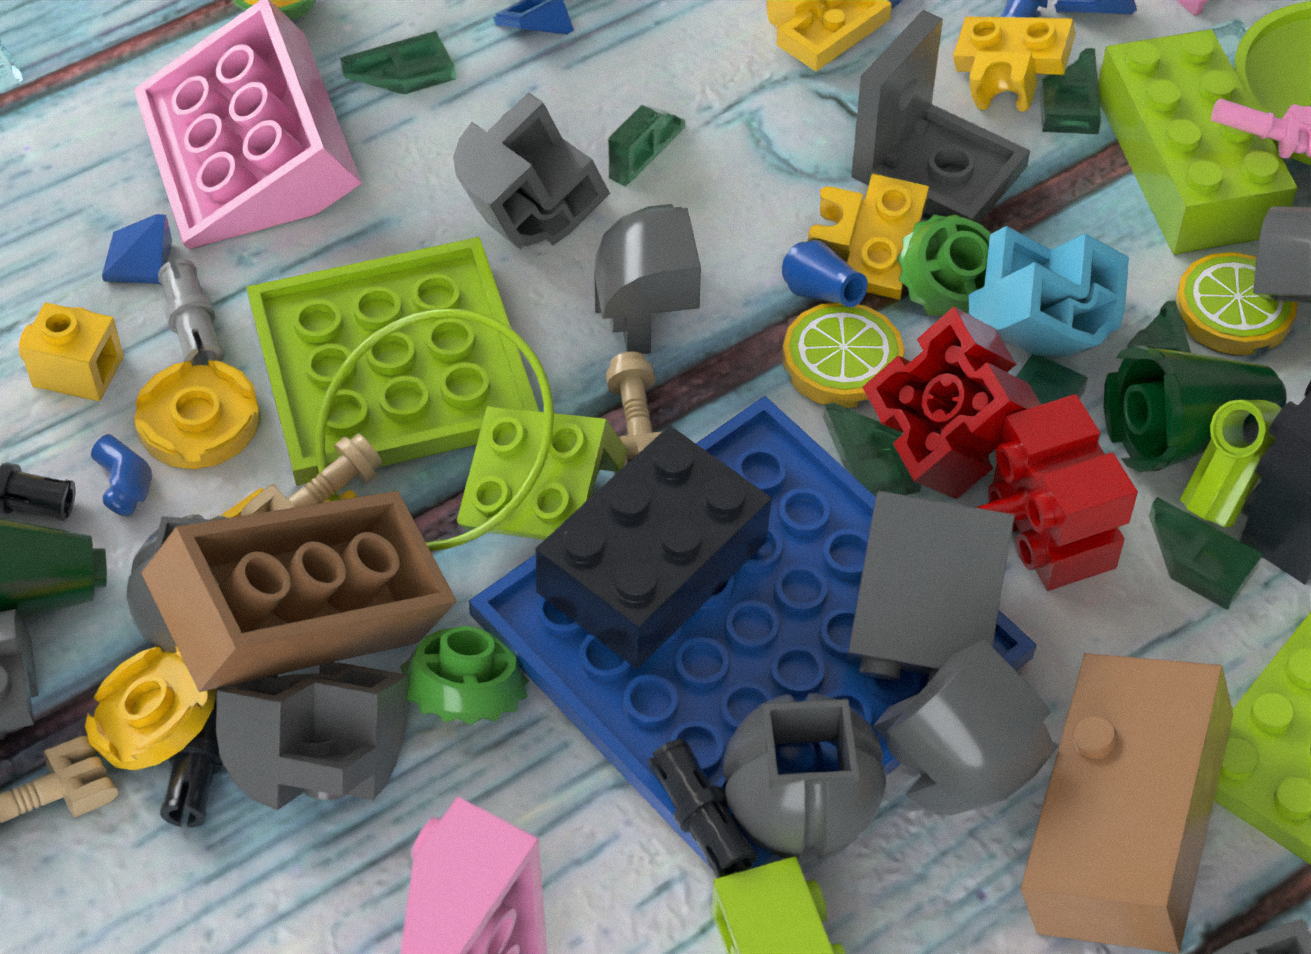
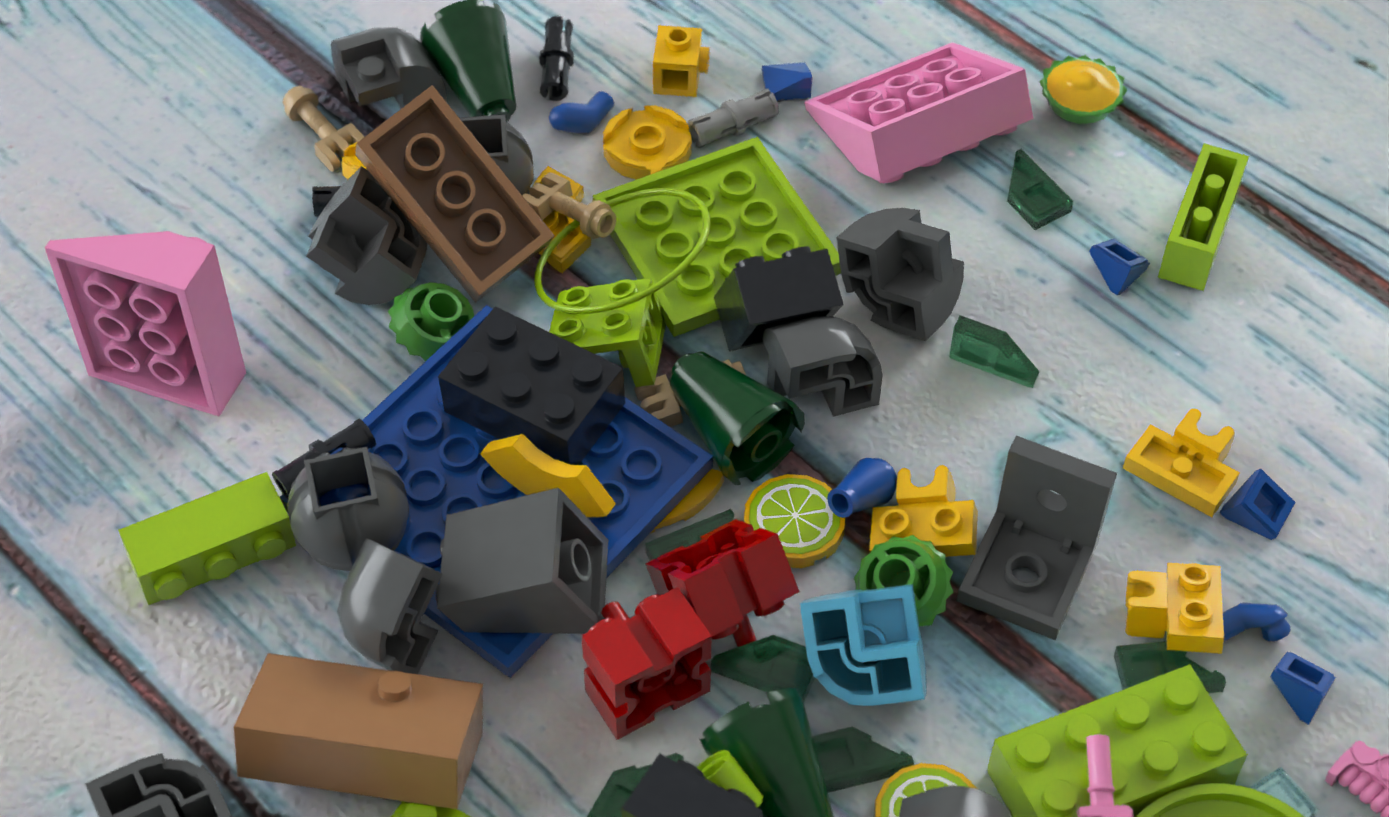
camera: 80 degrees right, 0 degrees up
(560, 283) = (775, 294): none -> black brick
(712, 362) = (735, 416): none -> dark green cone
(792, 551) = (536, 472): none -> yellow tile

